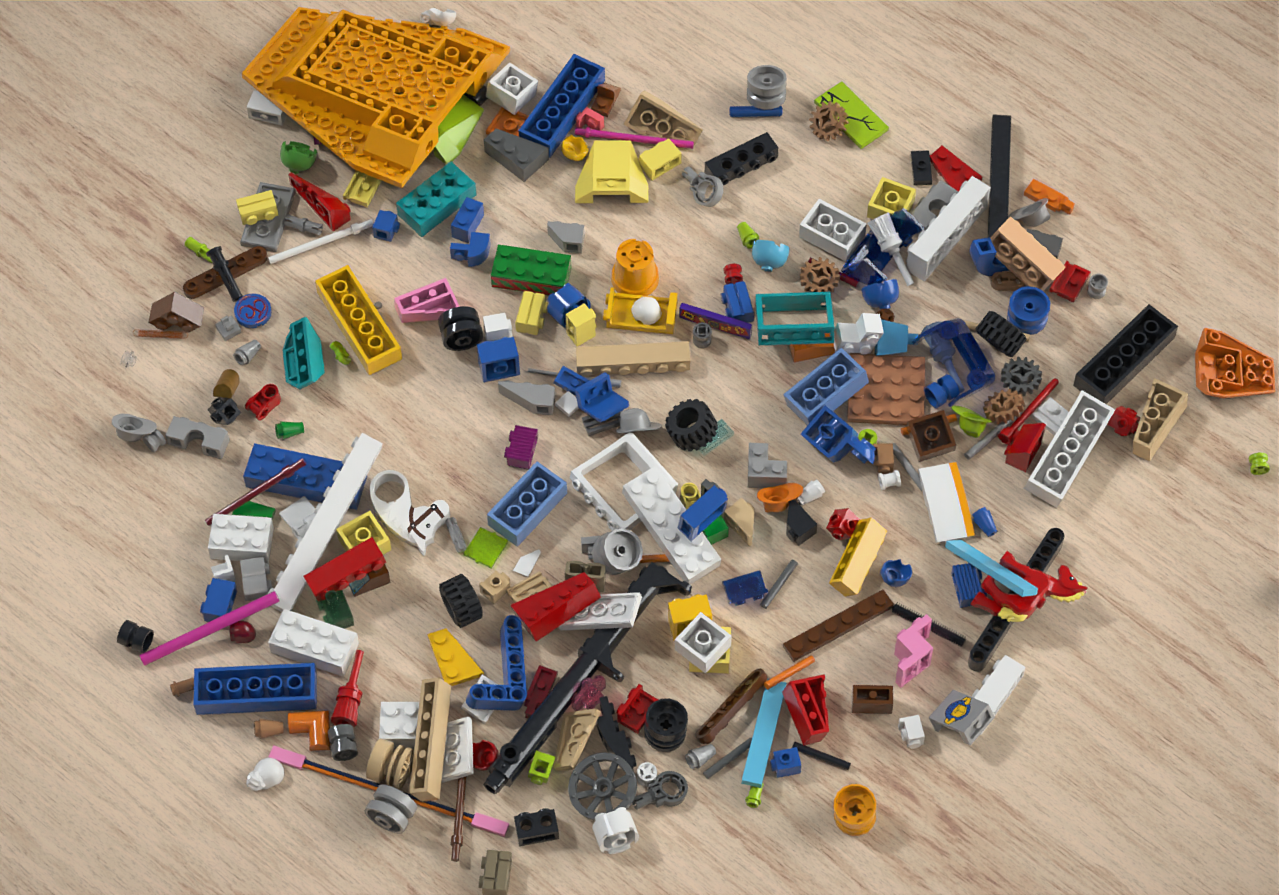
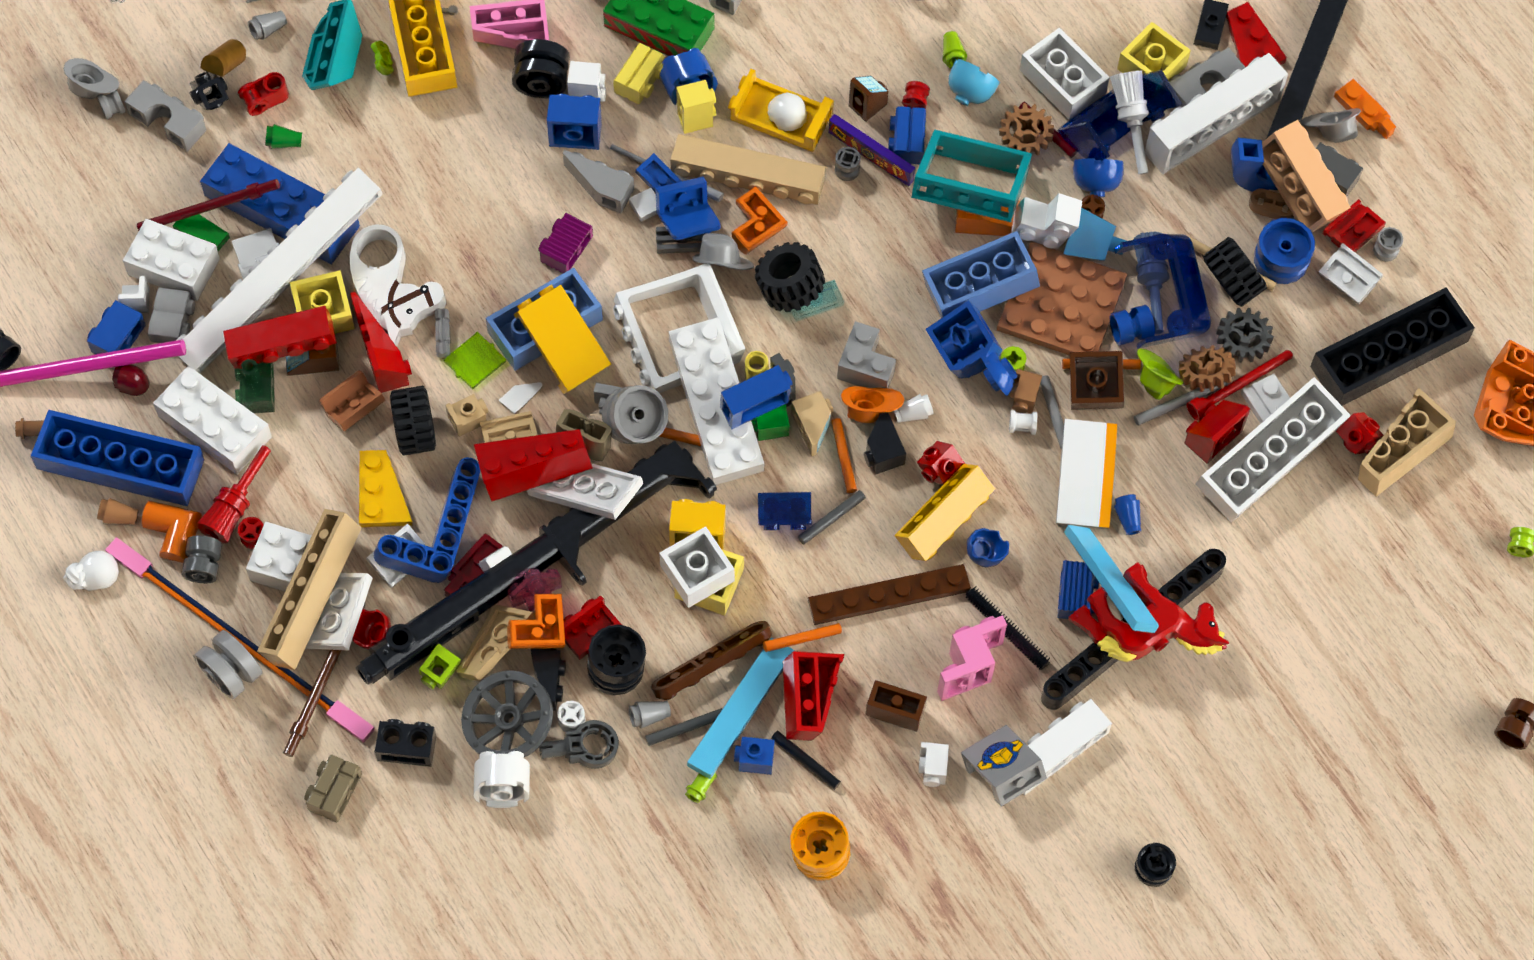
camera: 15 degrees right, 5 degrees up
(368, 709) = (247, 527): none -> red wheel
(385, 762) = (247, 604): tan wheel -> none
(409, 601) = (351, 401): none -> nougat bracket
(419, 561) = (384, 356): none -> red wedge
(546, 512) = (562, 337): none -> yellow panel
(554, 680) = (494, 558): none -> white tile
(608, 720) = (544, 631): none -> orange brick
(641, 278) = (798, 65): light orange piece -> none
(657, 392) = (762, 223): none -> orange brick
(699, 284) = (867, 96): none -> reddish brown slope
(772, 539) = (843, 455): none -> orange bar
(1079, 313) = (1350, 273): none -> white plate
(1088, 754) = (1155, 864): none -> black wheel

